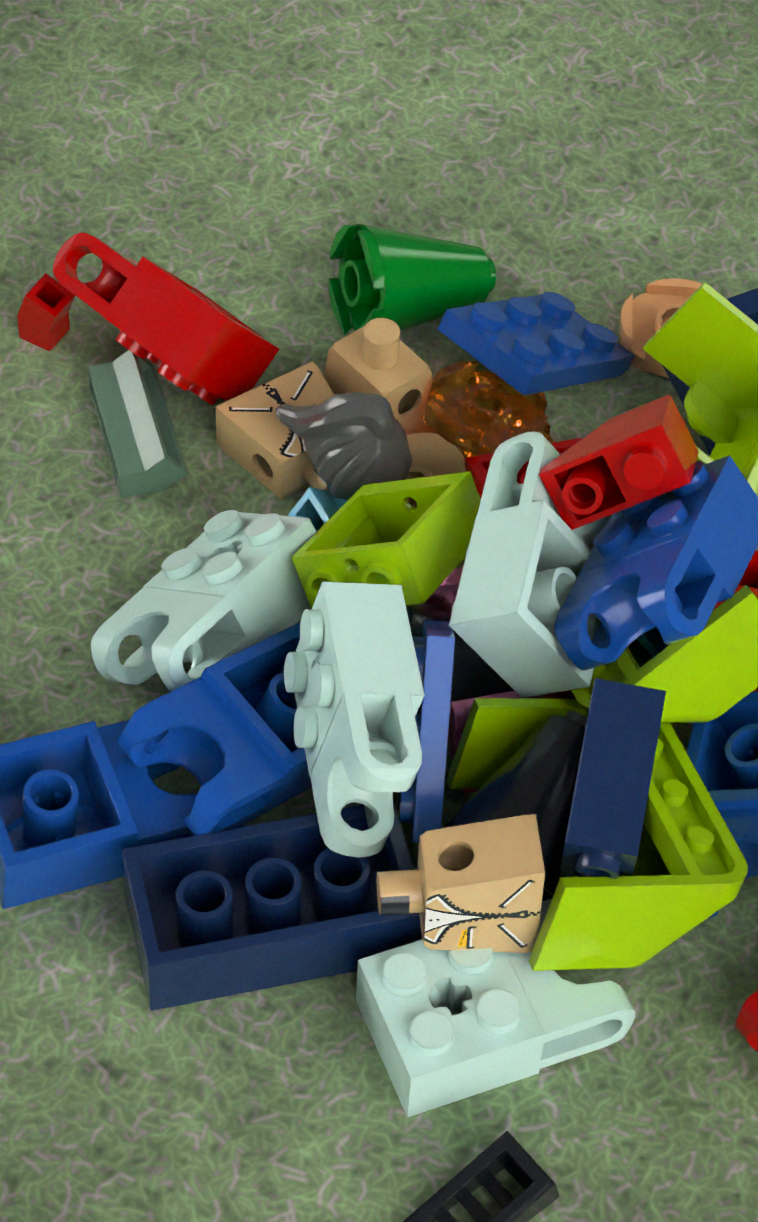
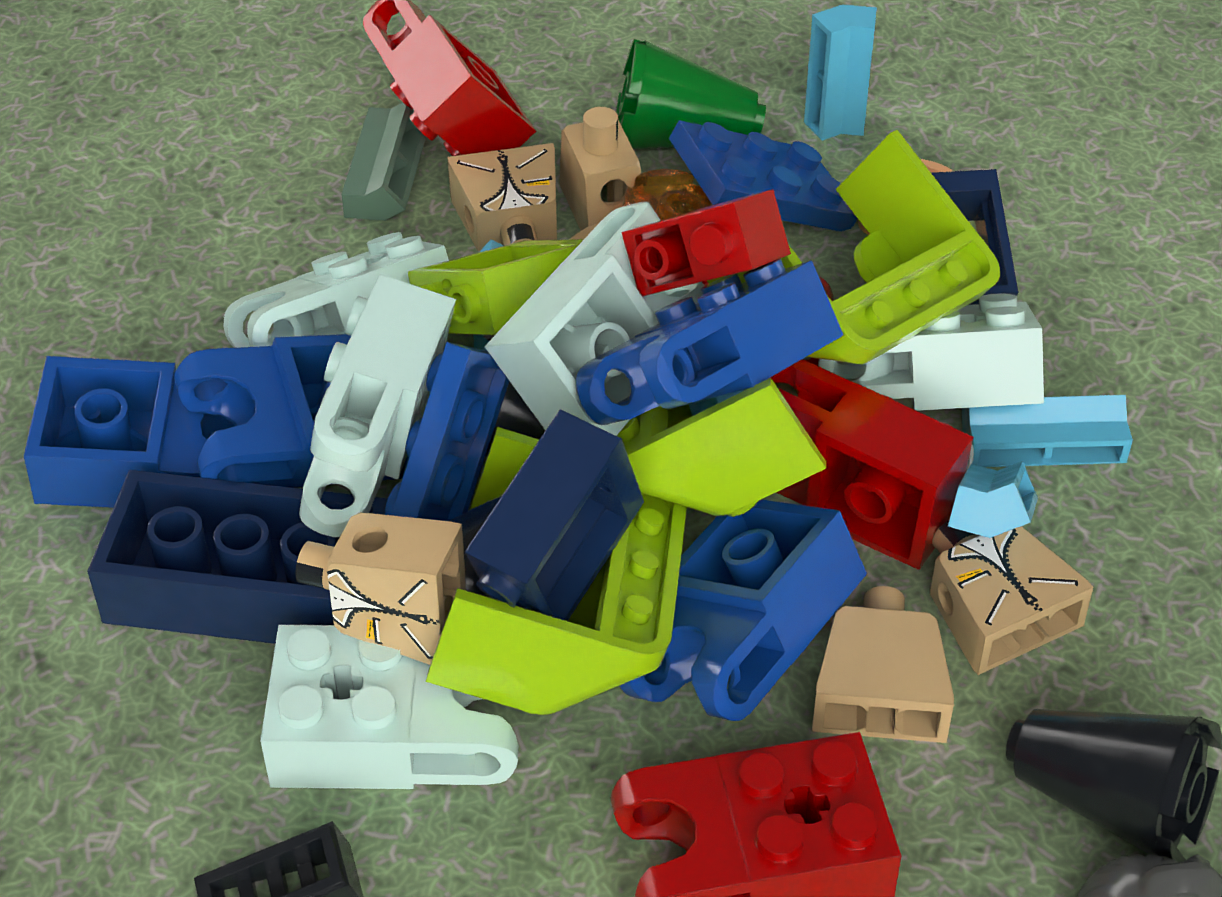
camera: 25 degrees right, 5 degrees down
(45, 313) = (358, 62): red piece -> none
(351, 440) = (538, 201): dark grey hair -> none
(559, 205) = (839, 70): none -> medium azure piece

